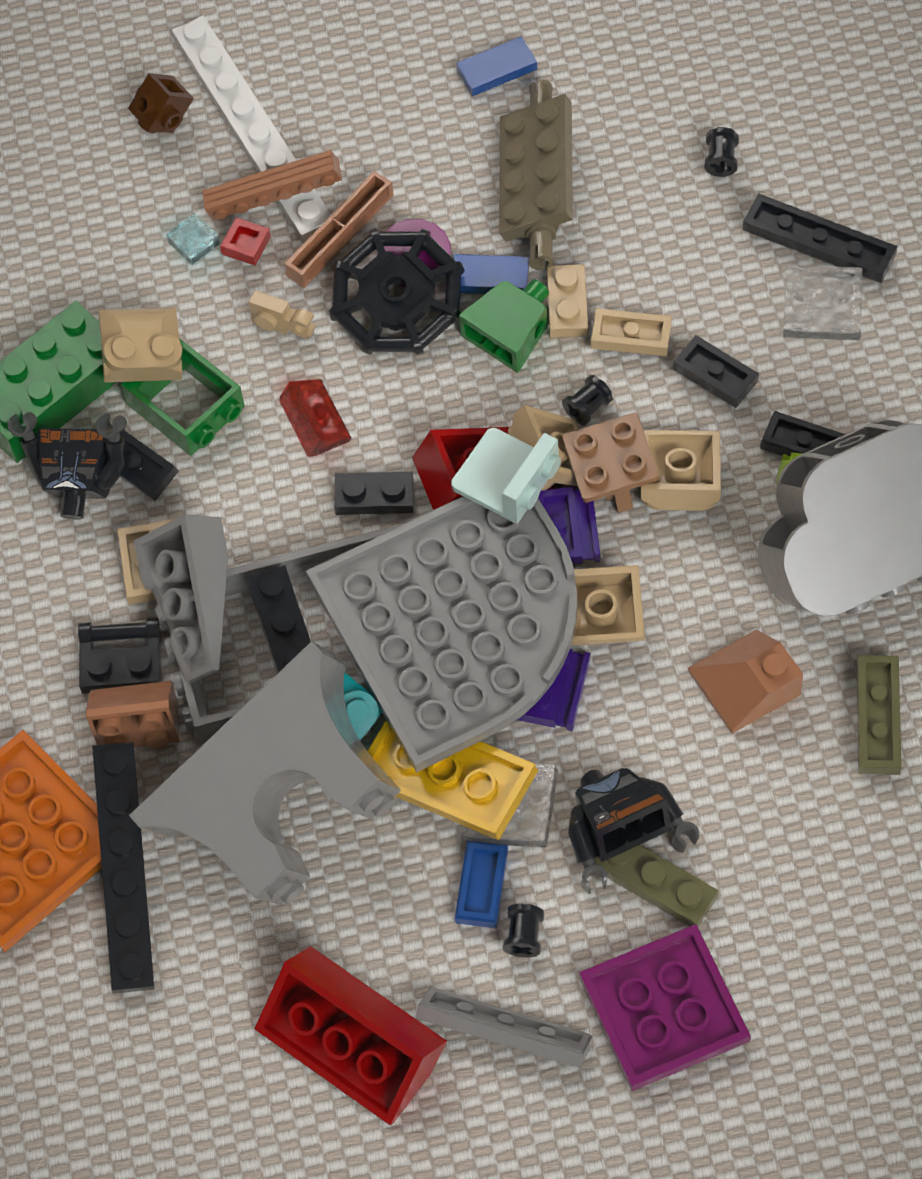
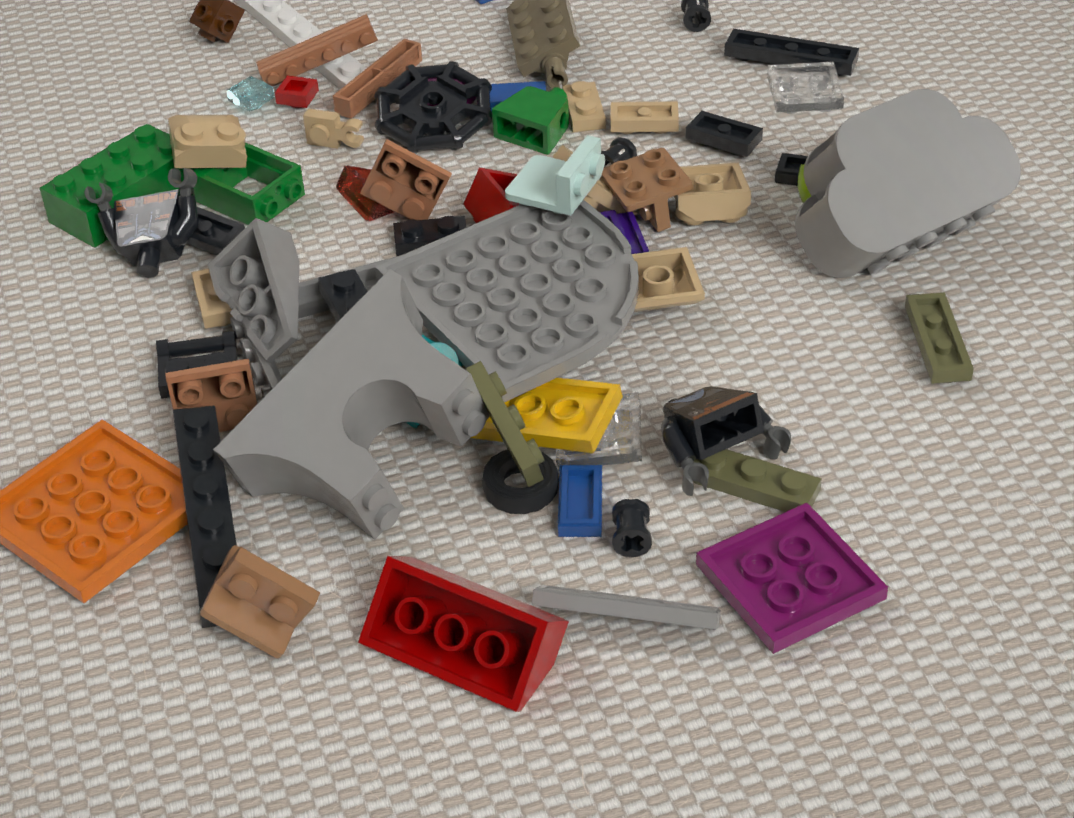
camera: 10 degrees left, 20 degrees down
(164, 981) = (257, 601): none -> medium nougat bracket
(351, 429) = (405, 182): none -> nougat slope
(415, 806) = (508, 424): none -> olive plate
(426, 877) = (513, 499): none -> black tyre
(562, 699) = (627, 355): dark purple plate -> none
(748, 679) = (811, 325): nougat slope -> none

